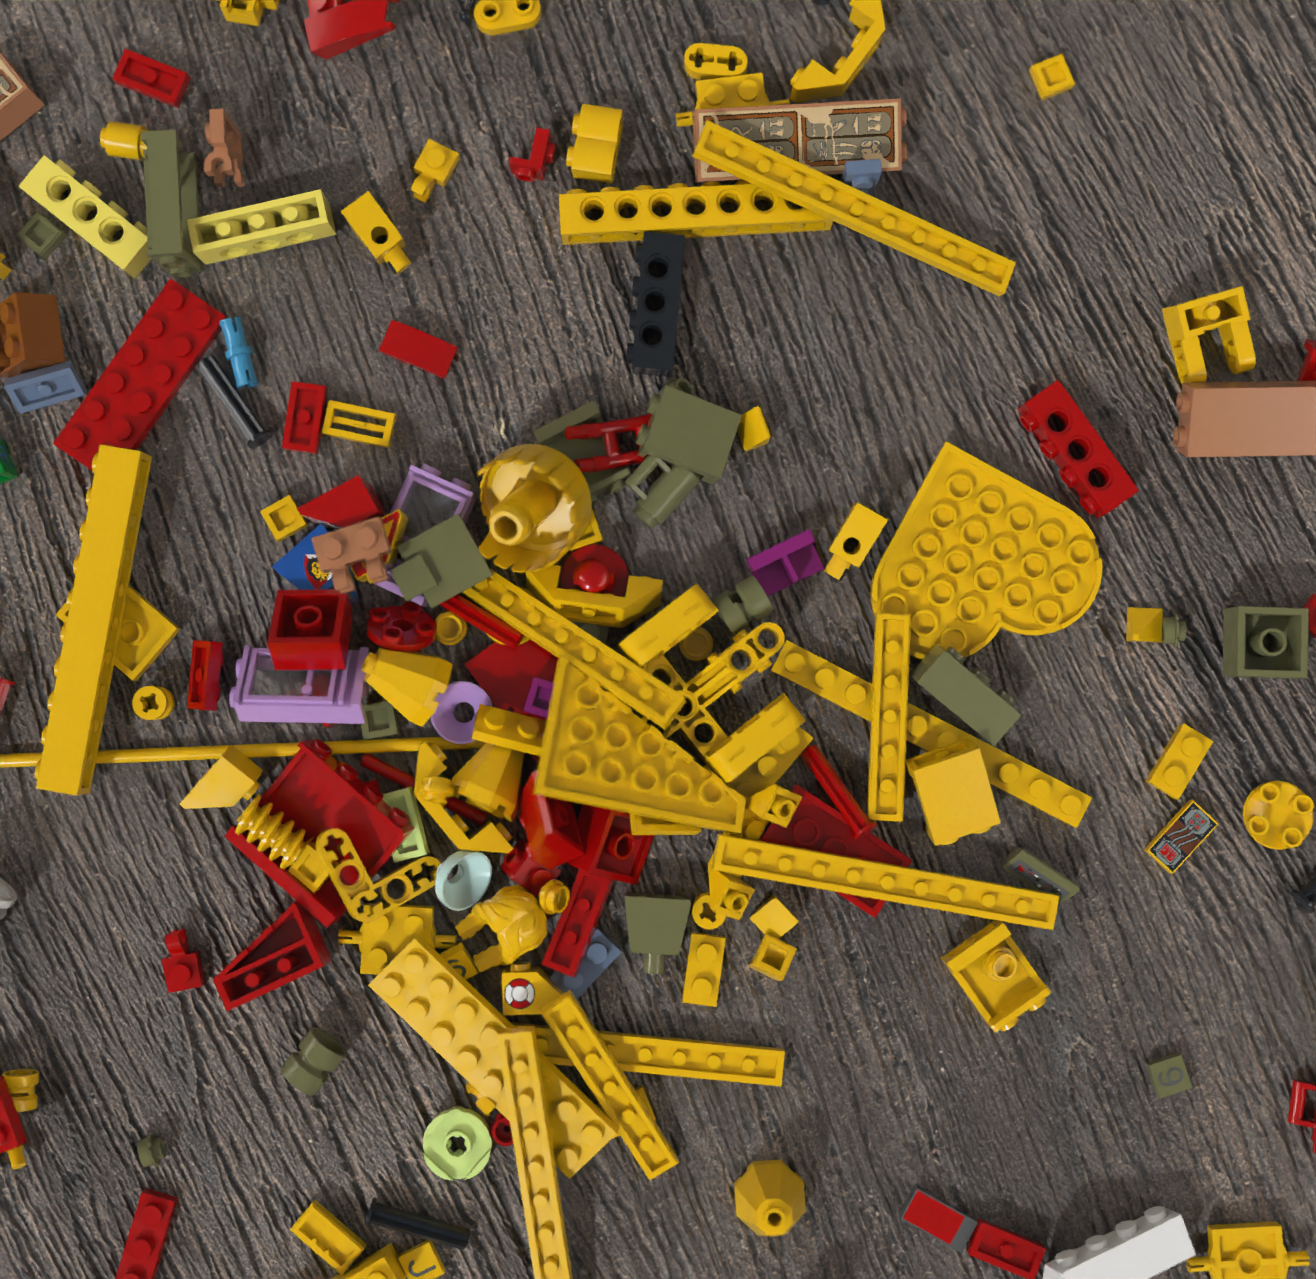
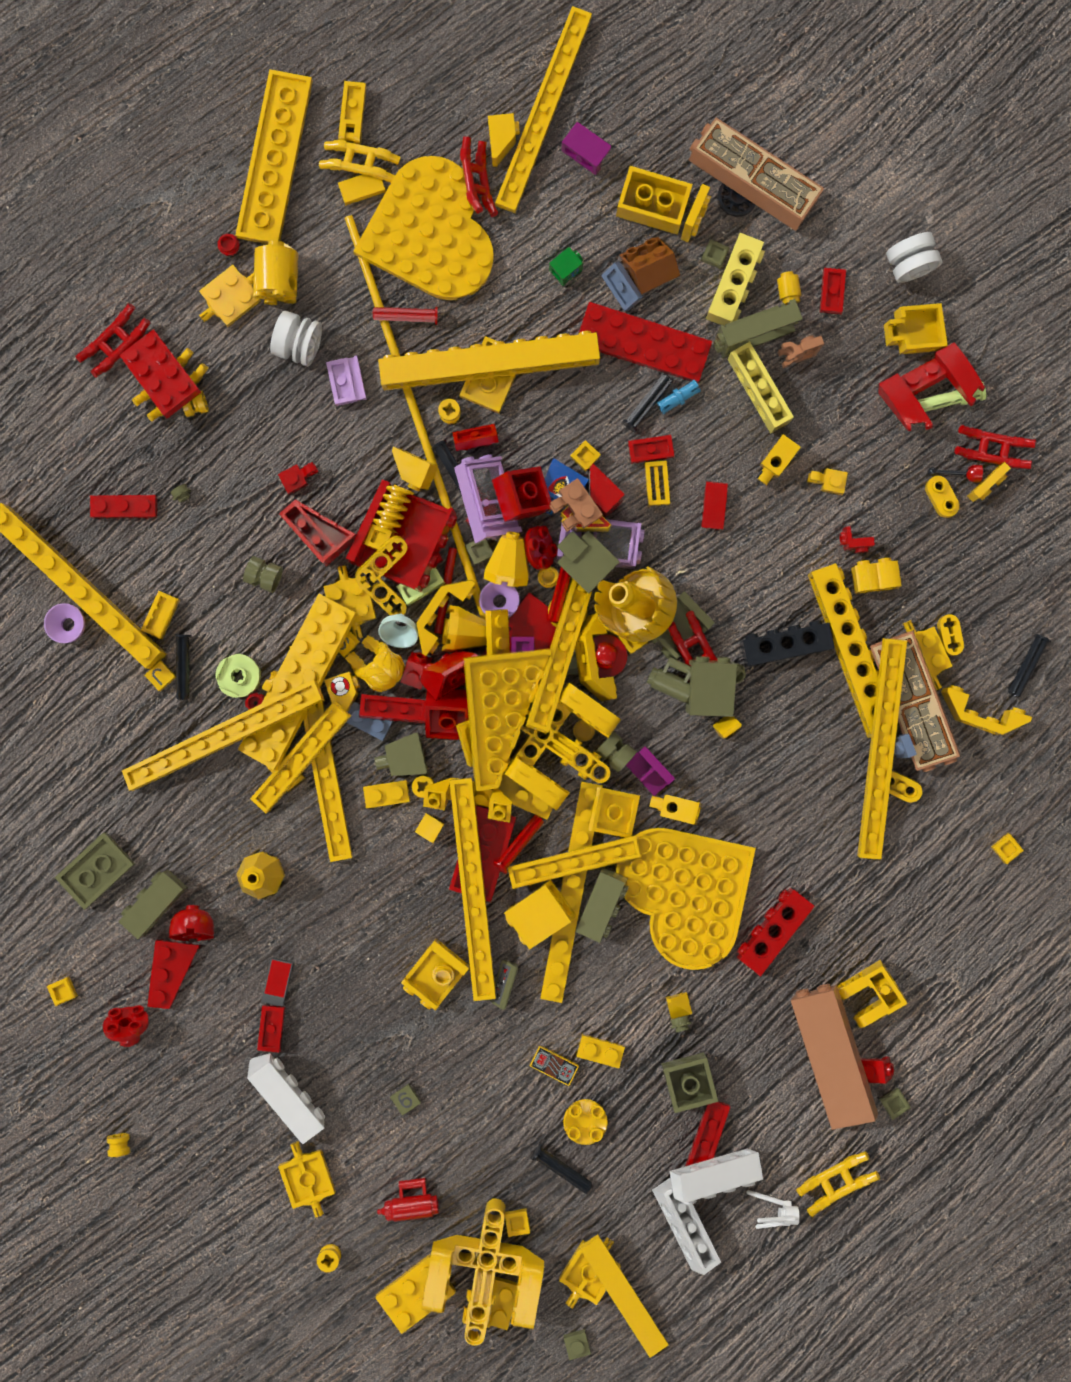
camera: 70 degrees right, 0 degrees up
(57, 846) = (346, 380): none -> lavender plate
(224, 728) = (447, 459): none -> black axle
(435, 789) = (448, 598): yellow plate -> none
(554, 897) = (404, 689): yellow plate -> none
(773, 957) = (406, 834): yellow slope -> none
(832, 635) = (614, 812): none -> yellow plate
(914, 202) = (899, 787): none -> yellow plate

